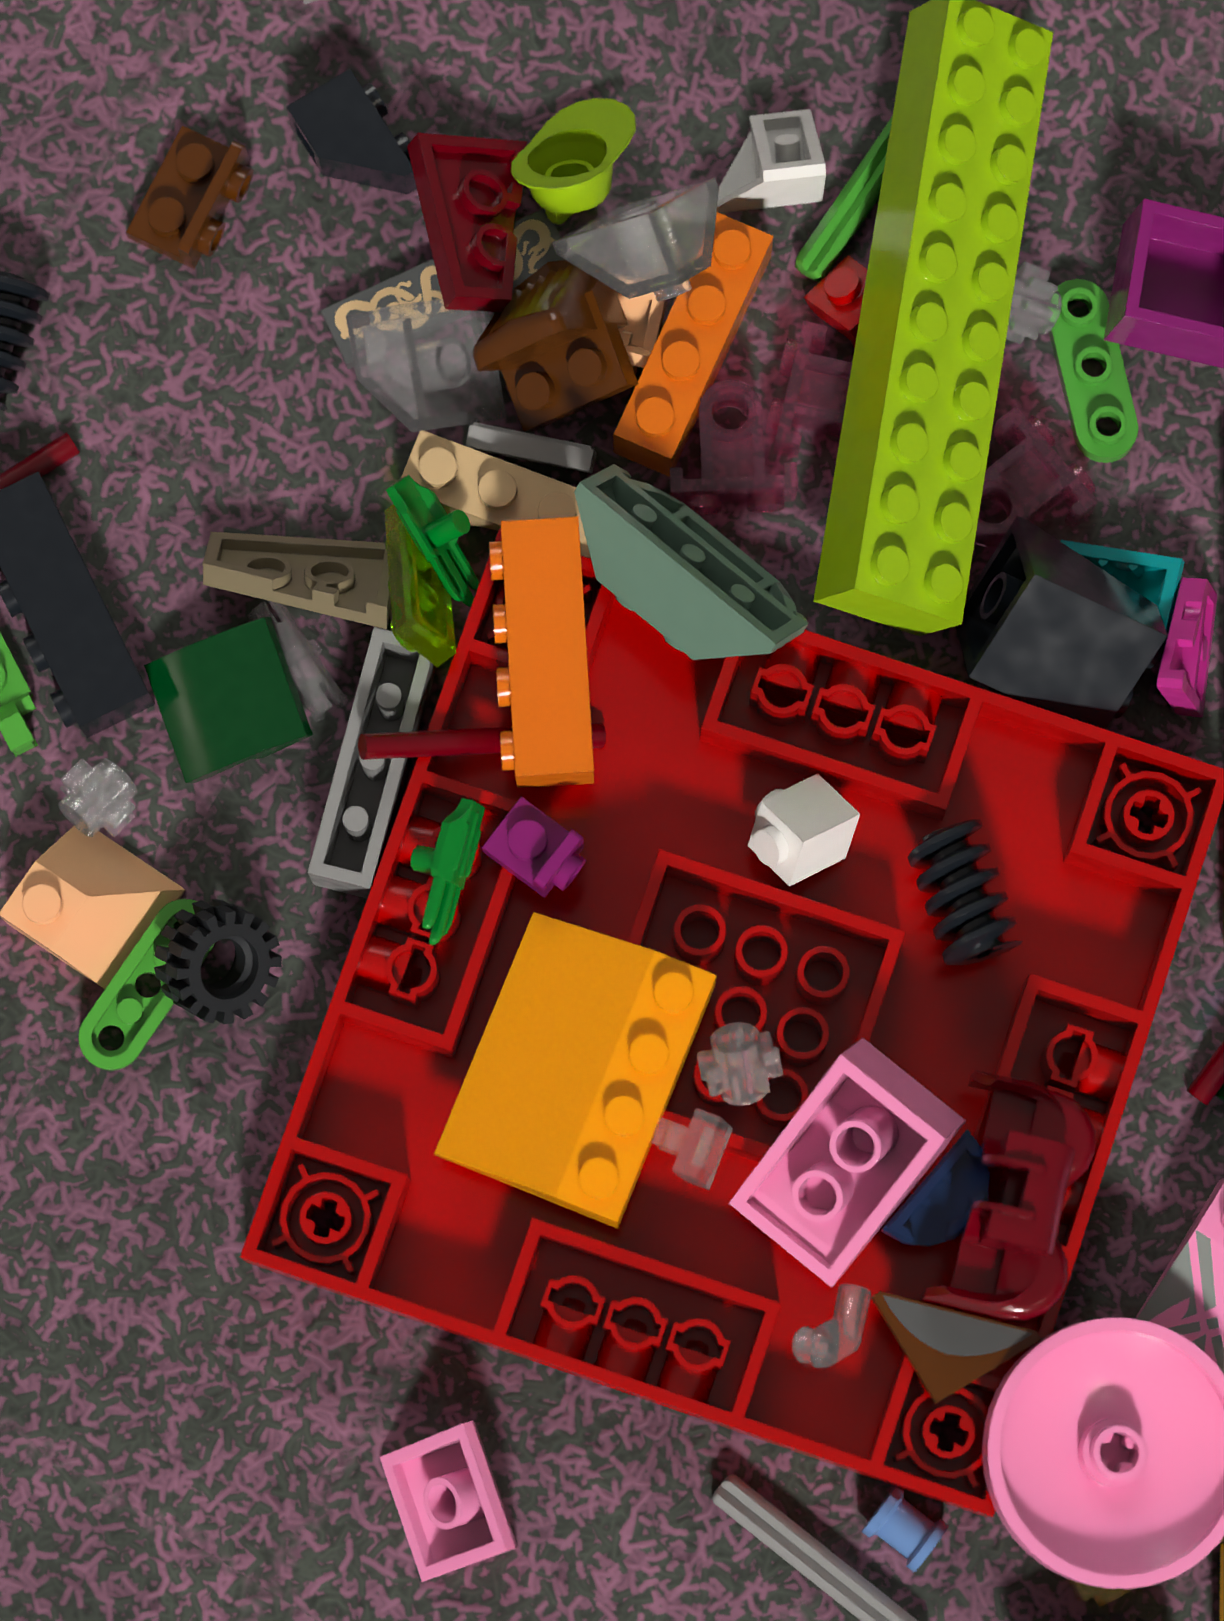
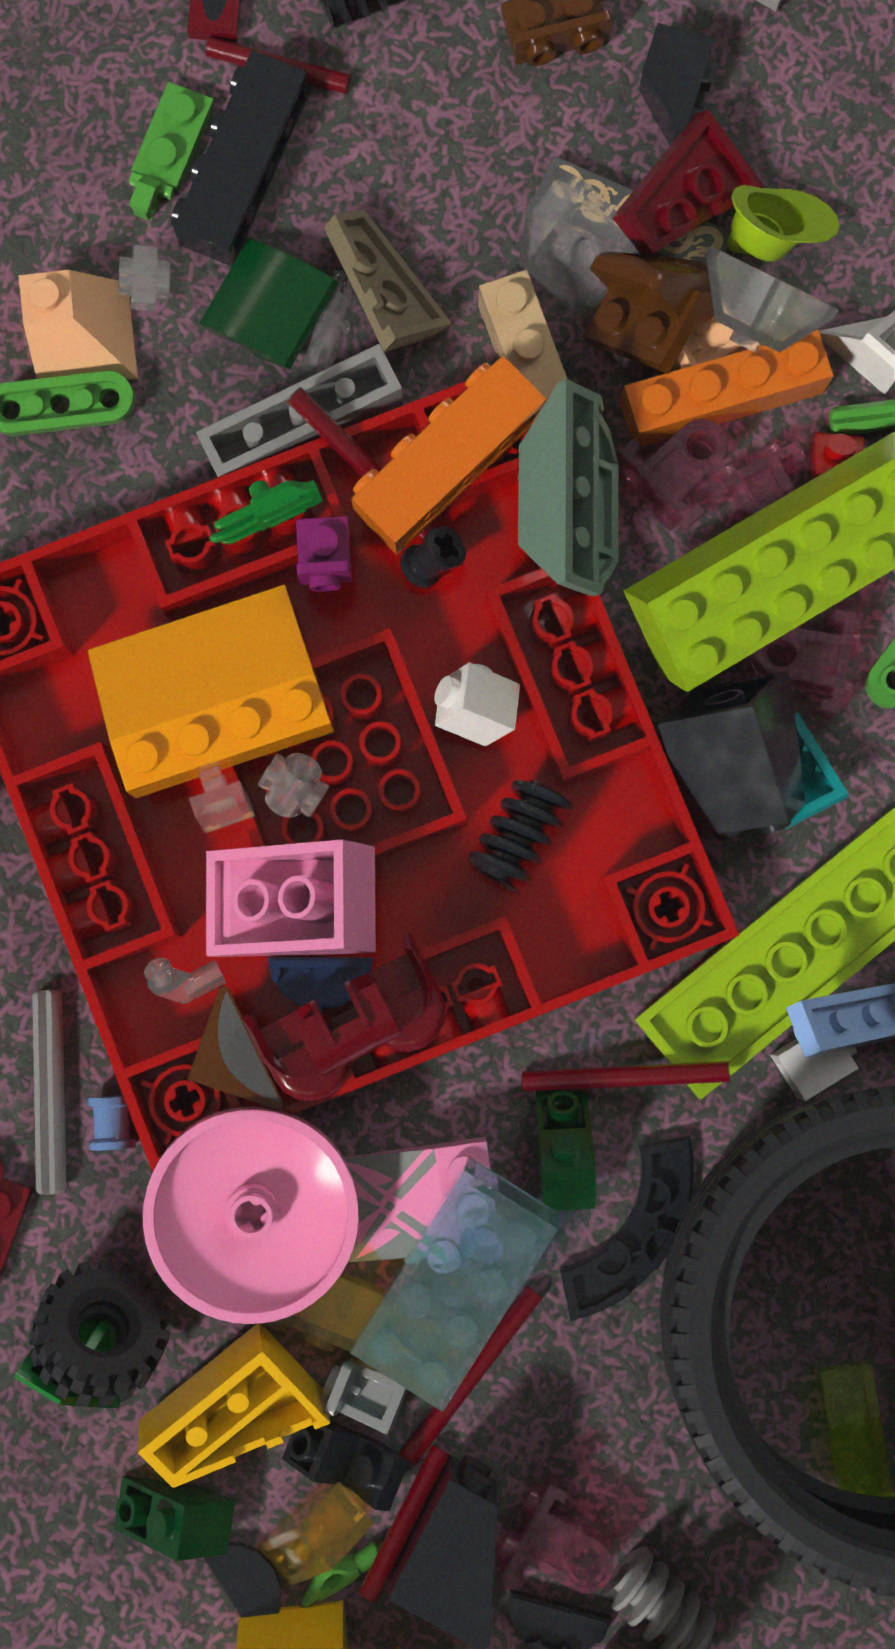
camera: 50 degrees right, 5 degrees up
(245, 976) = (97, 456): black tyre -> none
(418, 599) = (430, 347): clear neon green plate -> none
(436, 535) = (468, 330): green piece -> none
(531, 447) = (576, 347): light grey tile -> none
(619, 761) = (438, 553): none -> black bush
(1188, 648) = (796, 844): dark pink wing -> none

